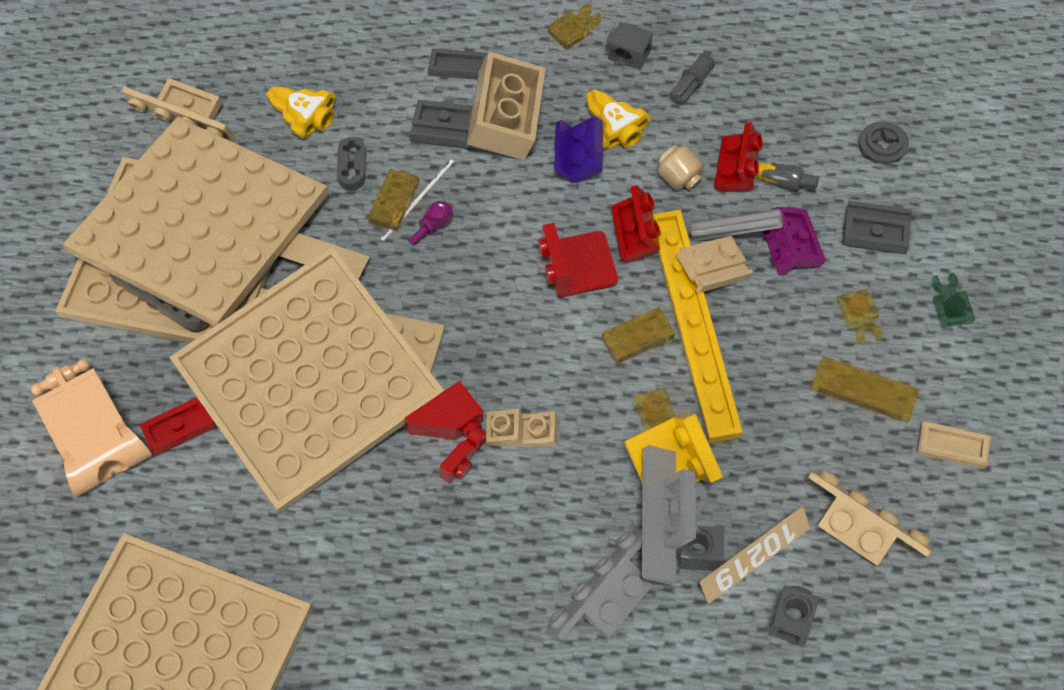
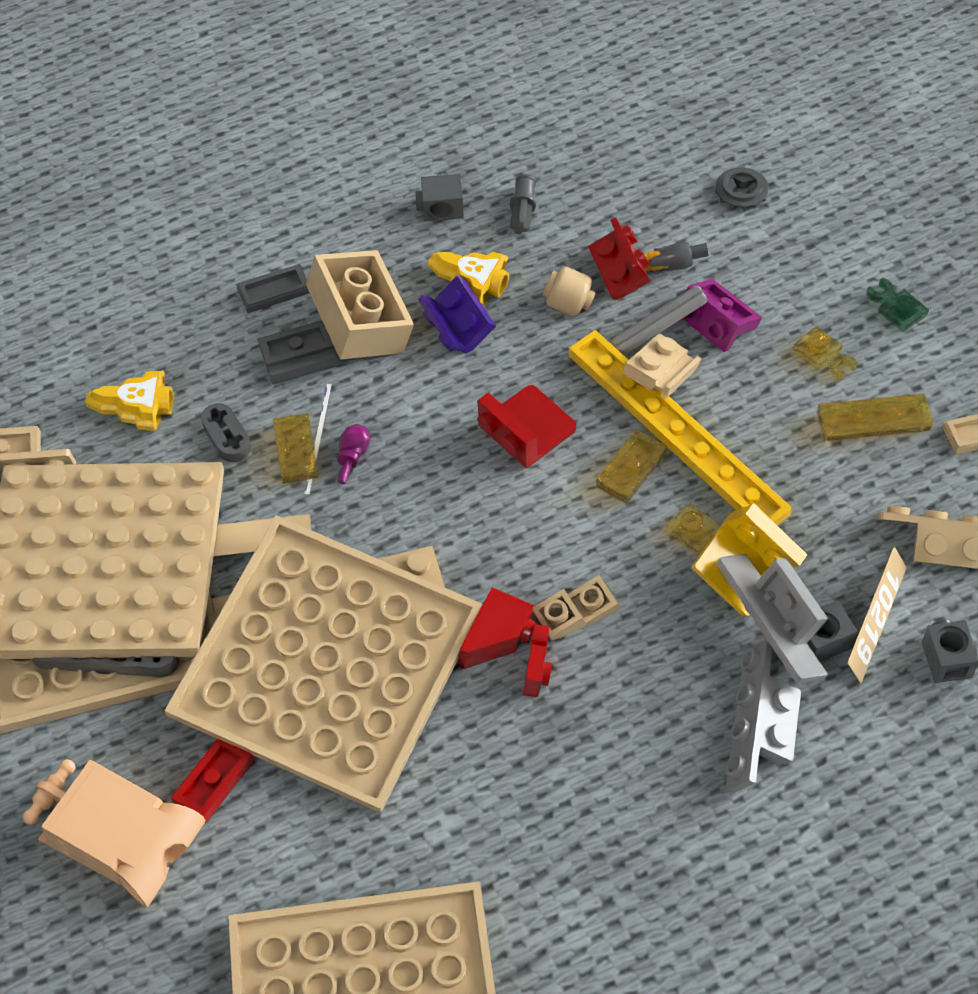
camera: 30 degrees left, 5 degrees down
(573, 28) = (371, 205): clear yellow plate -> none
(636, 225) = (561, 364): red bracket -> none
(877, 227) = (787, 266): dark grey plate -> none

